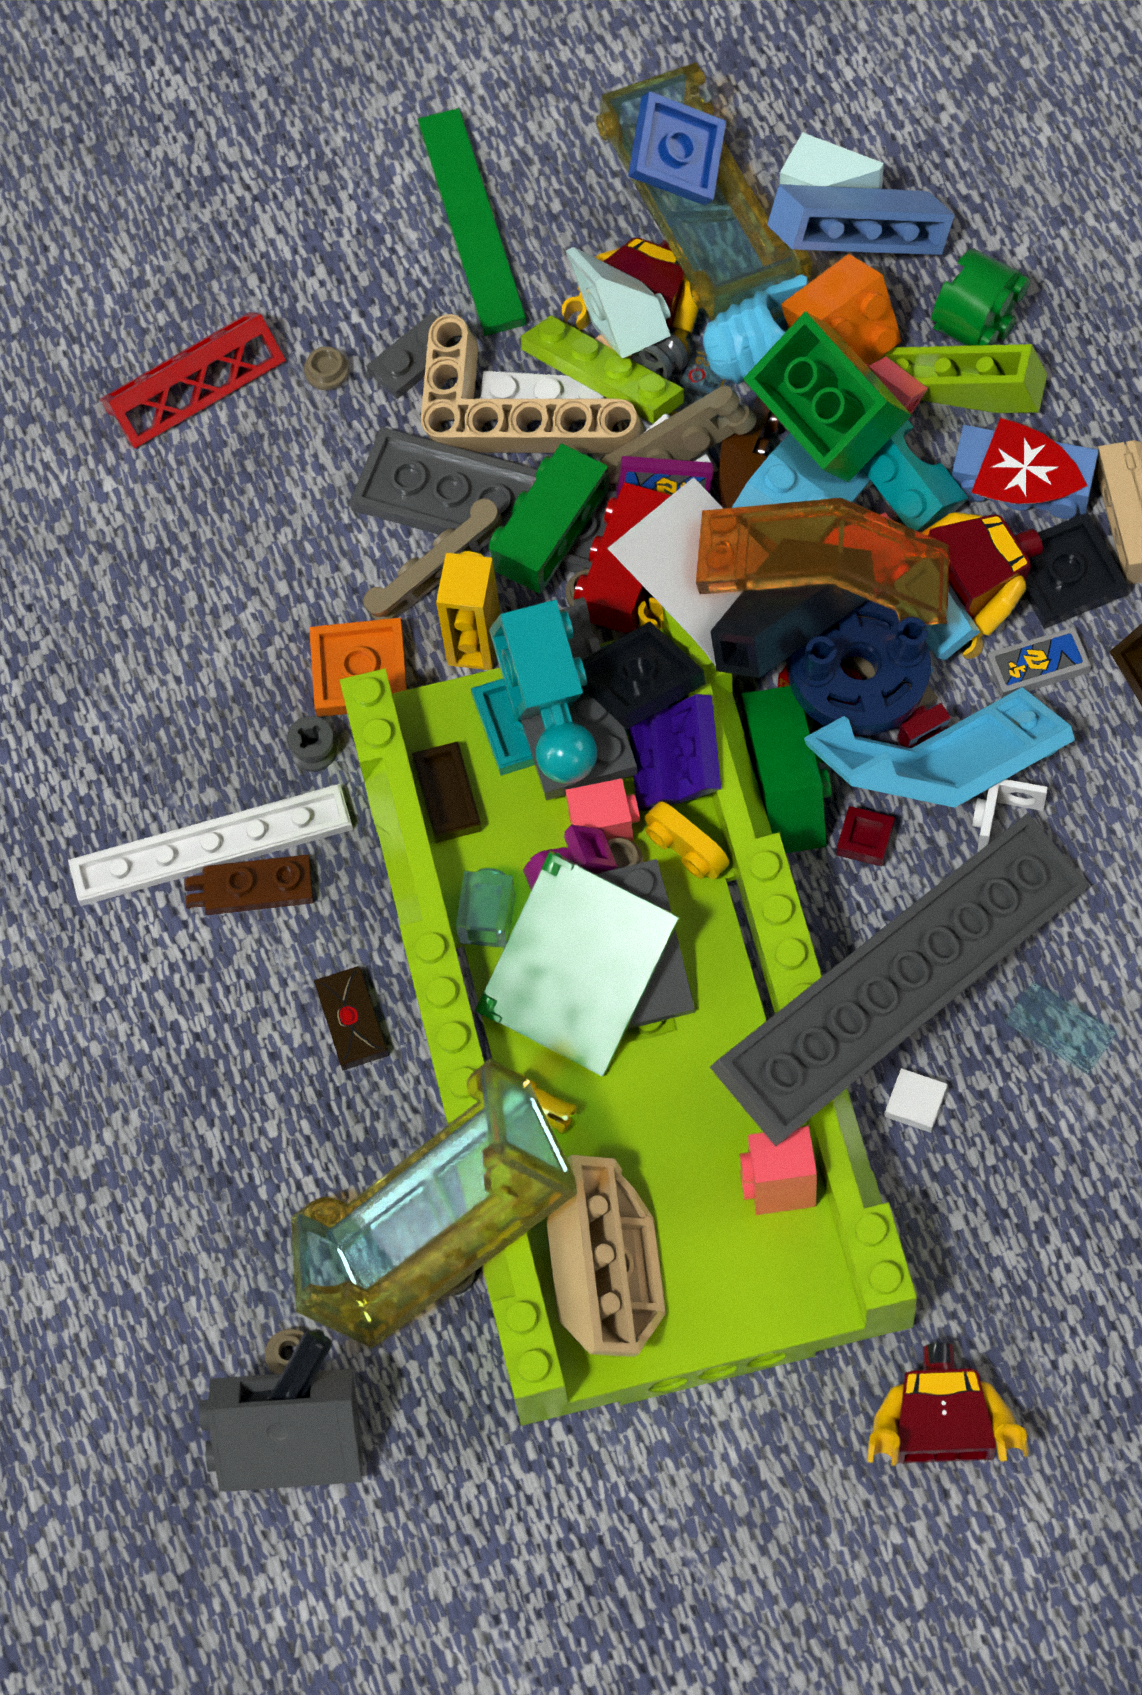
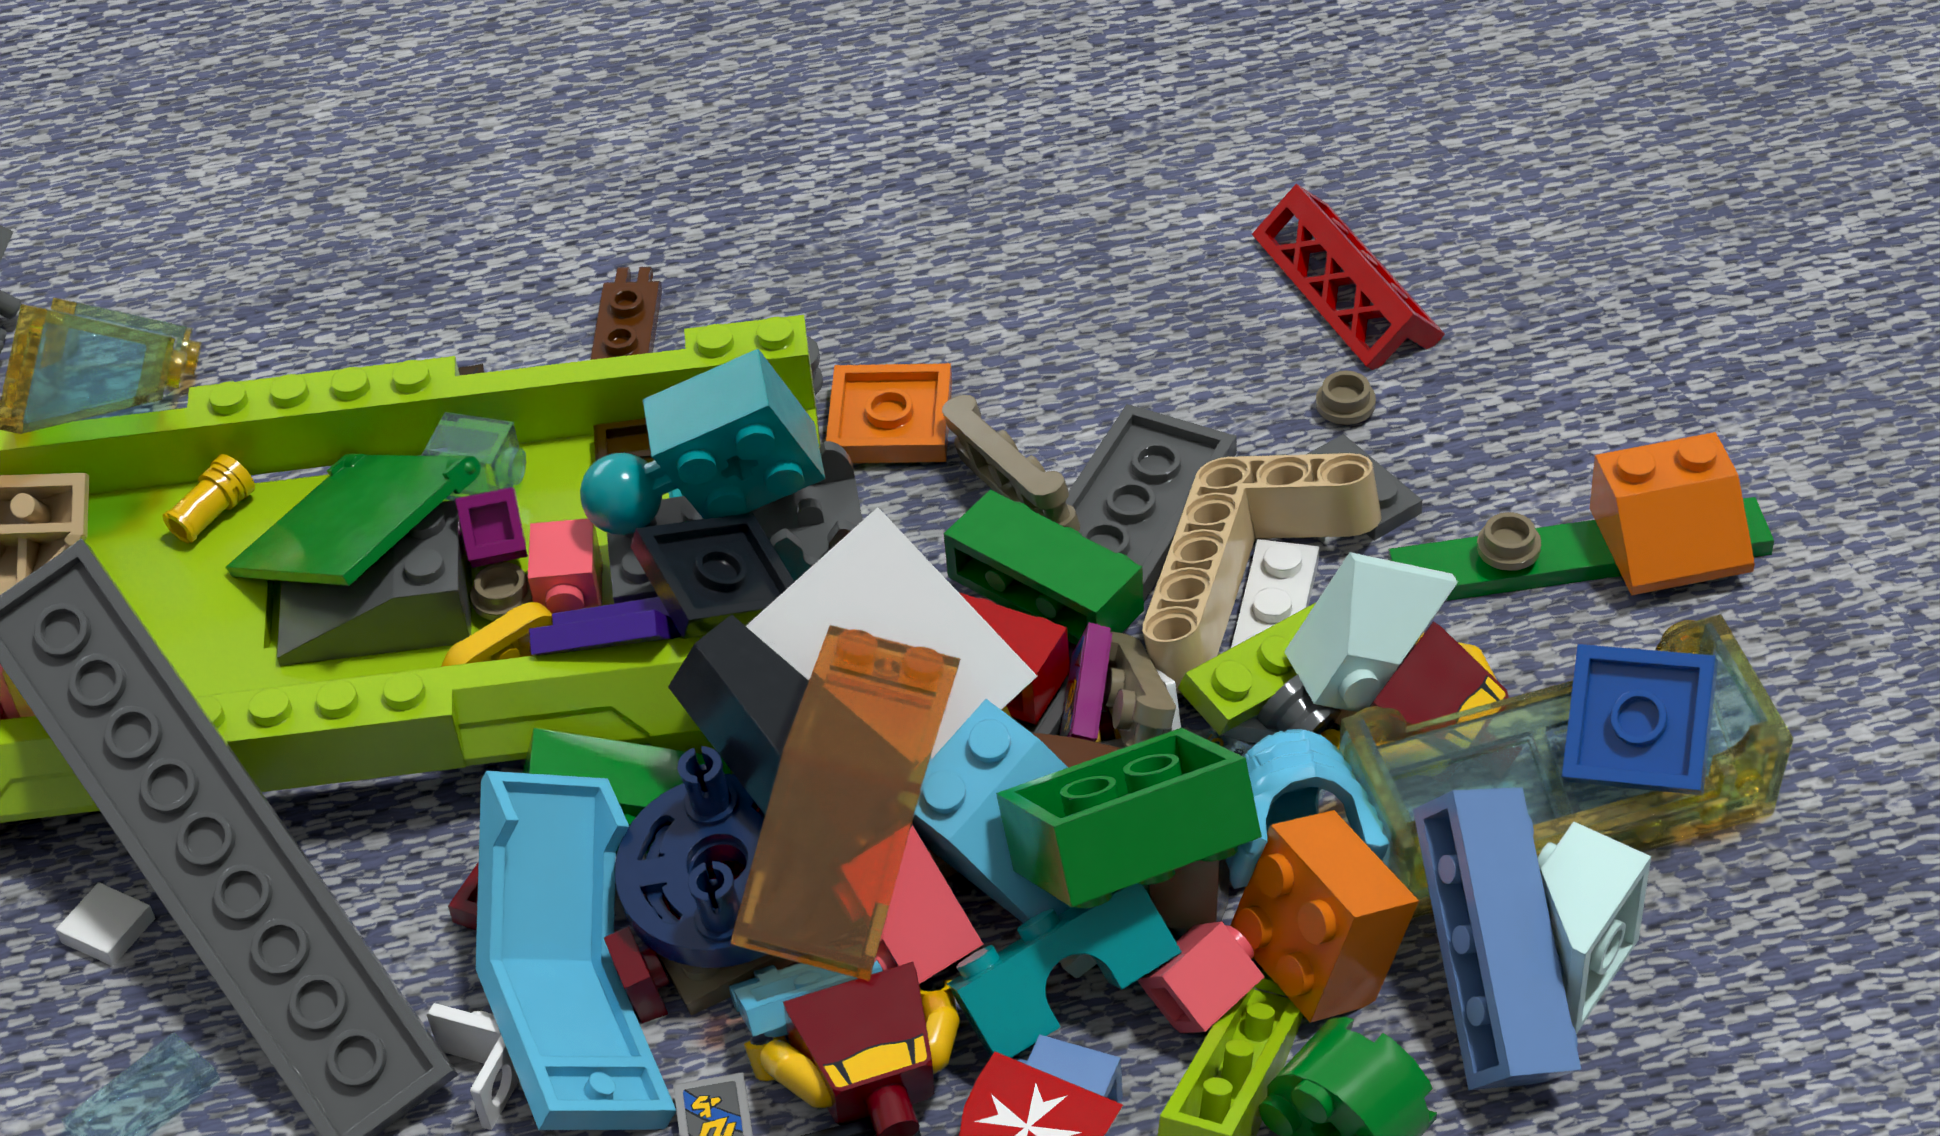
camera: 95 degrees right, 20 degrees down
(210, 843) = (686, 257): white tile -> none
(457, 154) = (1672, 513): none -> orange slope
(467, 608) = (903, 460): yellow brick -> none
(484, 250) = (1509, 542): none -> dark tan plate

